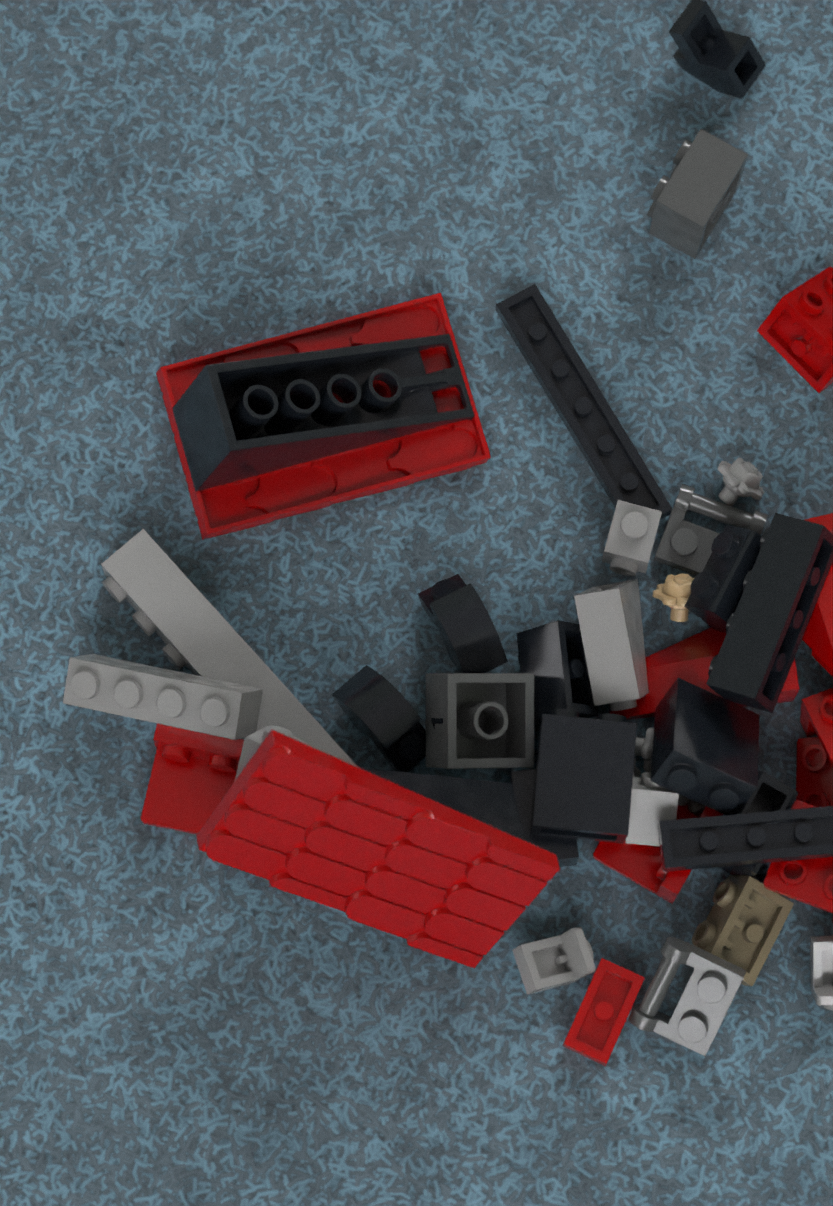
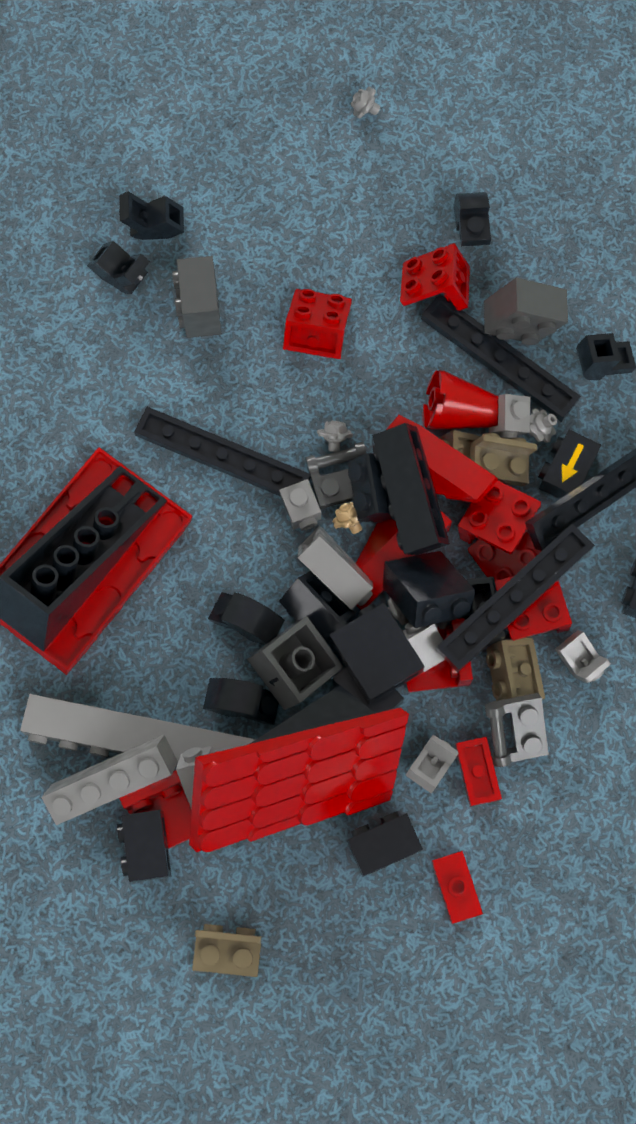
camera: 35 degrees left, 0 degrees up
(146, 803) = (144, 846): none -> black brick
(151, 996) = (227, 951): none -> dark tan bracket
(425, 1010) = (383, 844): none -> black brick
(474, 1127) = (457, 887): none -> red plate
(628, 87) = (118, 267): none -> black brick

